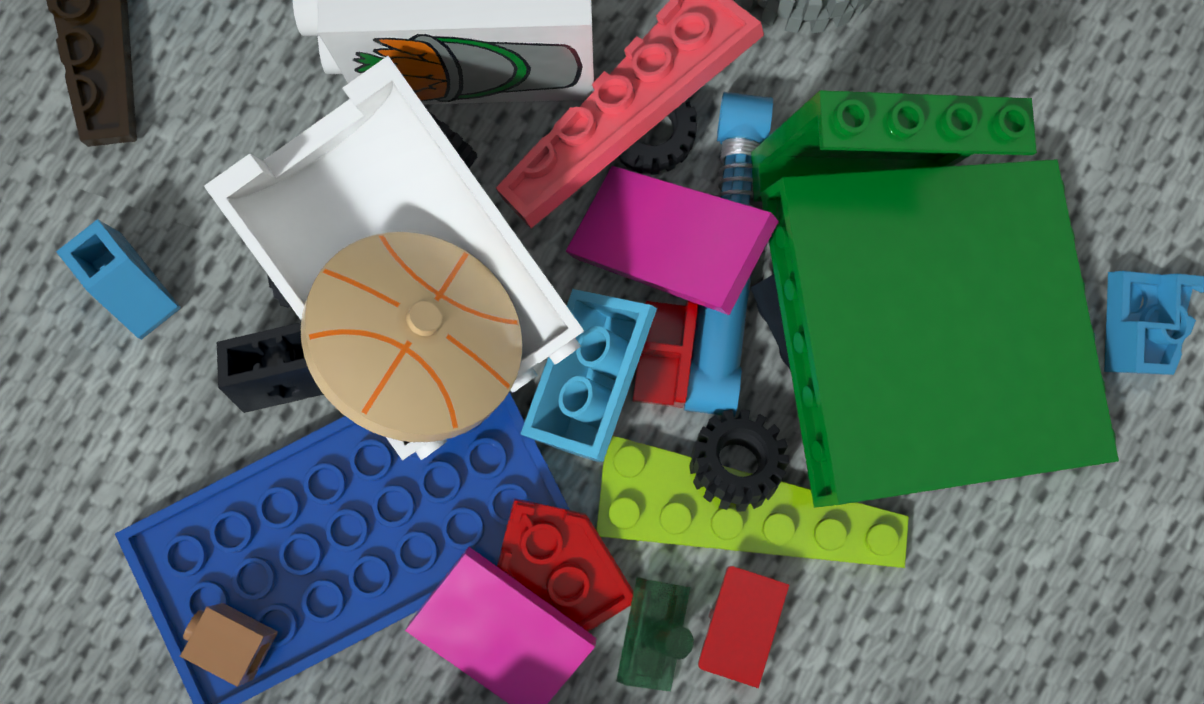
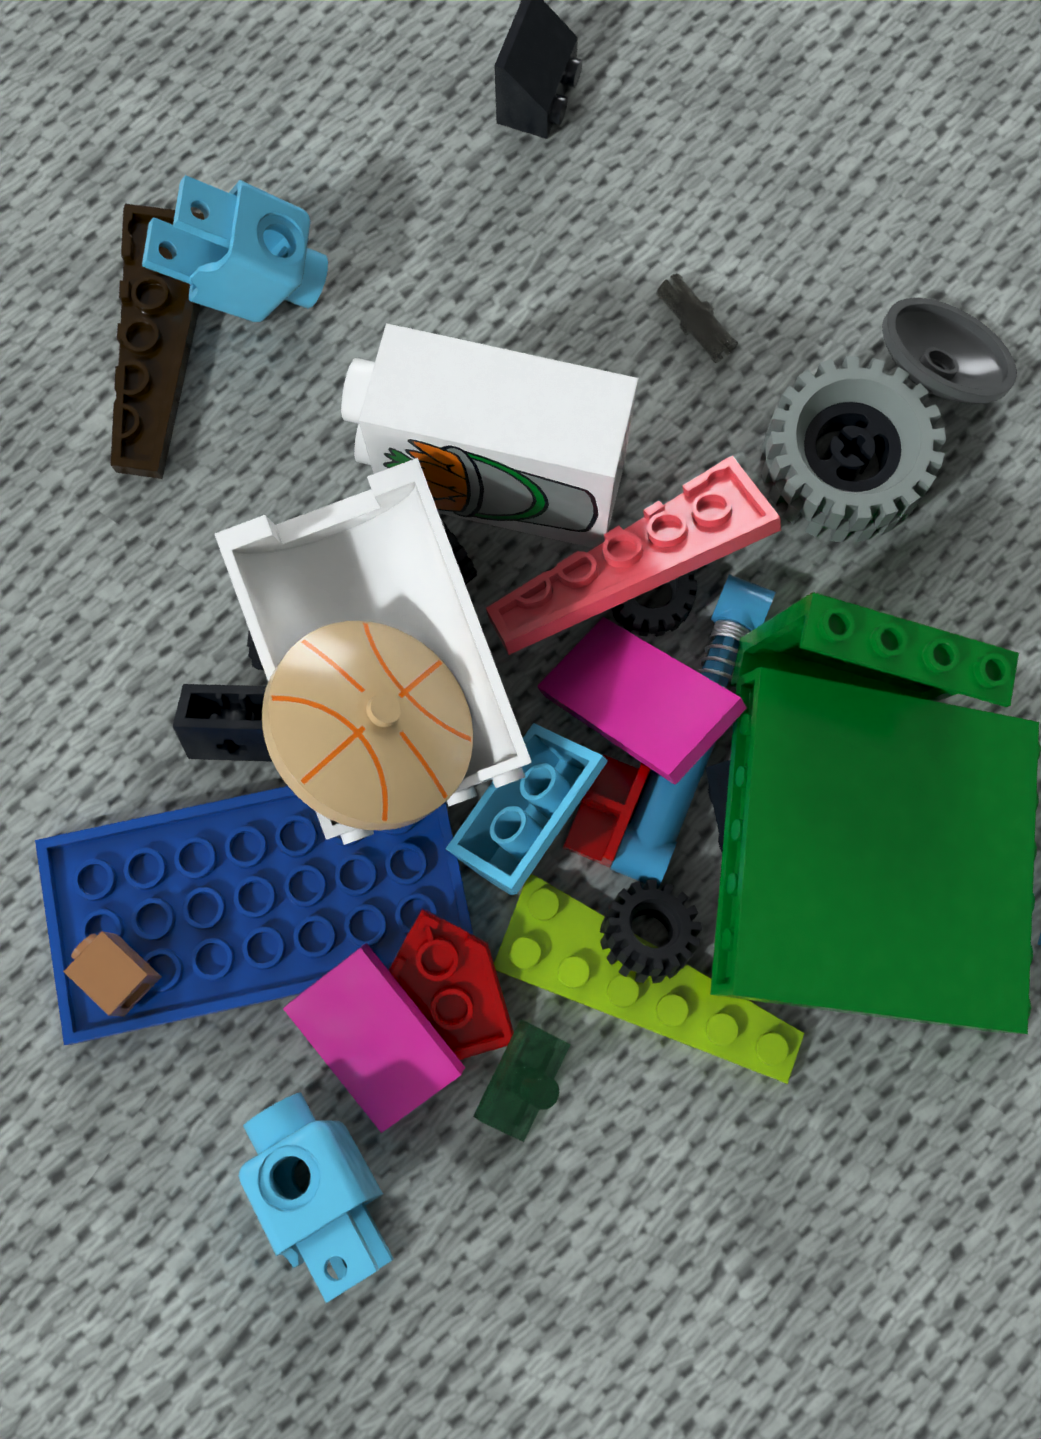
camera: 15 degrees right, 5 degrees down
(118, 278) = (109, 601): dark azure slope -> none
(742, 626) = (611, 1095): red panel -> none

